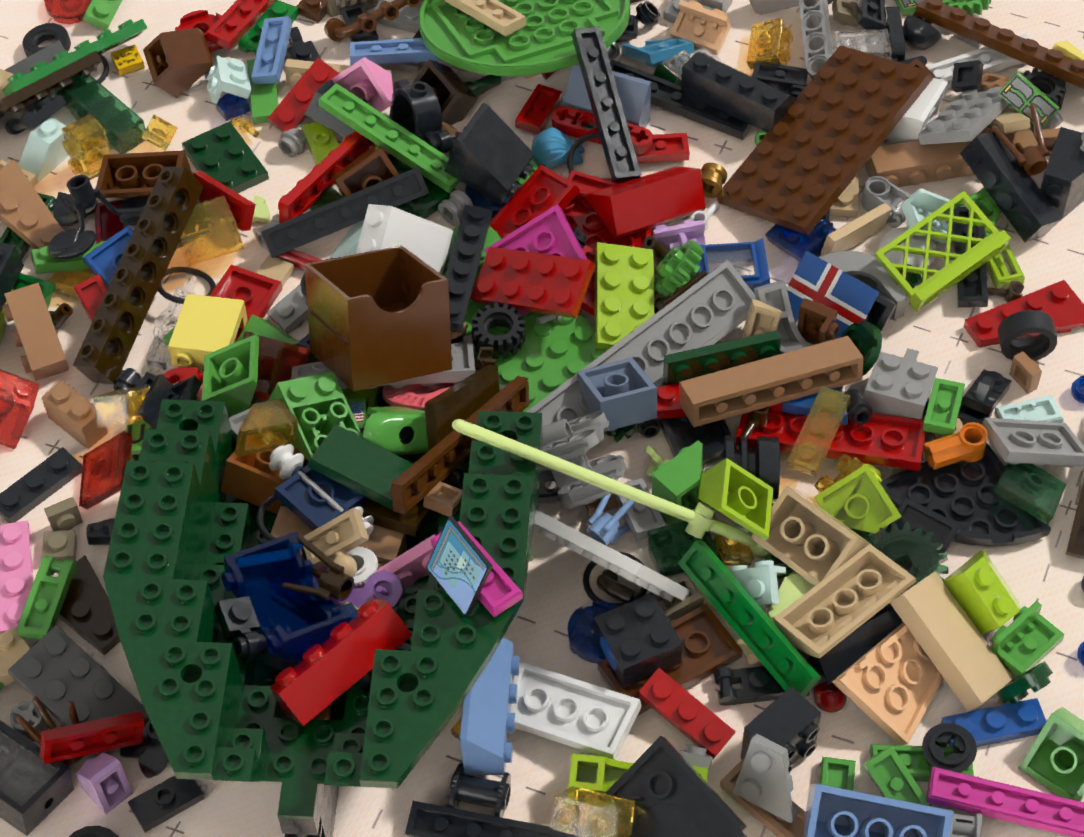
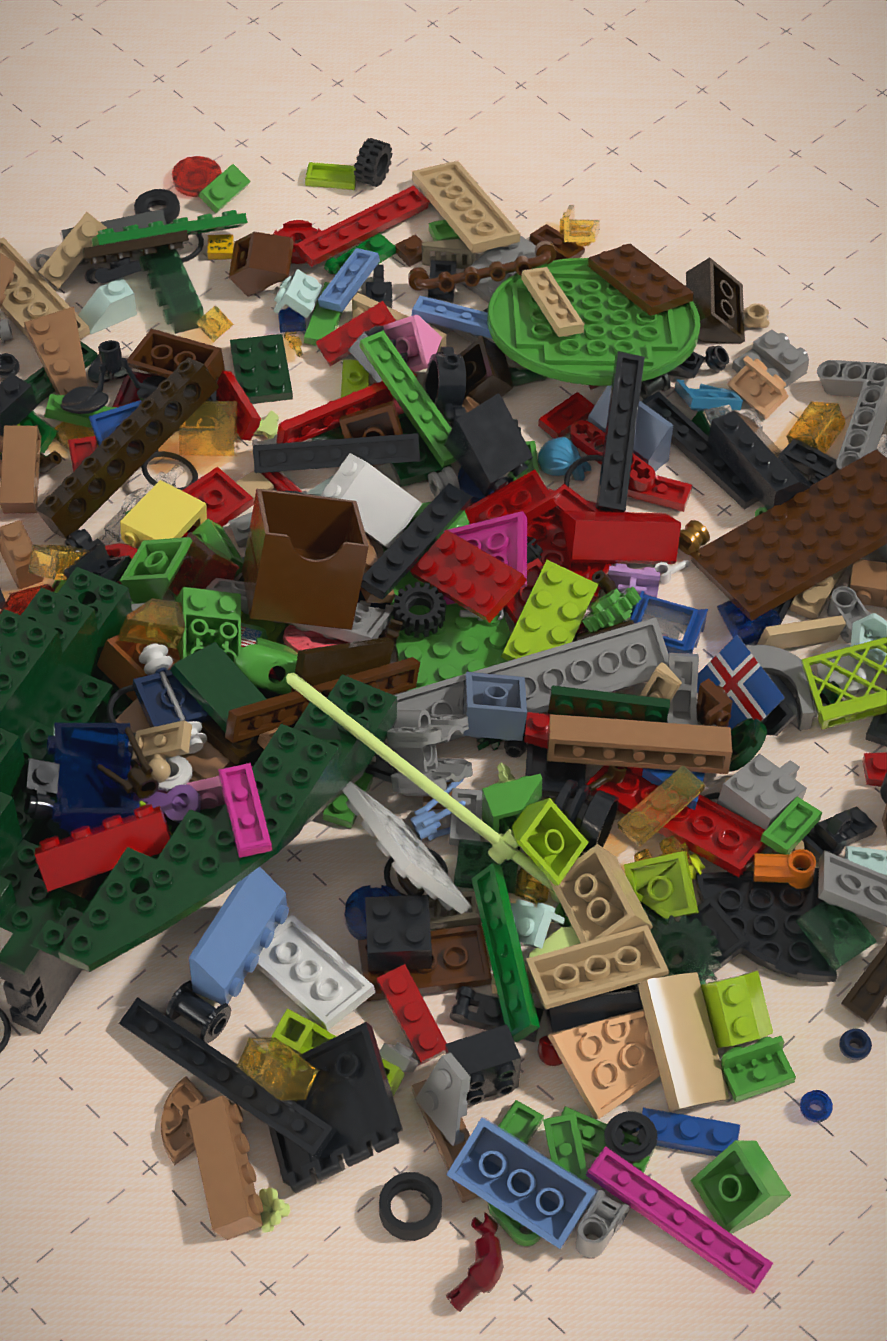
camera: 20 degrees right, 0 degrees up
(85, 145) = (141, 314): clear yellow brick -> none
(292, 142) = (328, 372): light grey plate -> none
(459, 566) = (225, 801): piece -> none
(859, 411) = (709, 801): black pin -> none
(1034, 678) = (731, 1106): dark green plate -> none

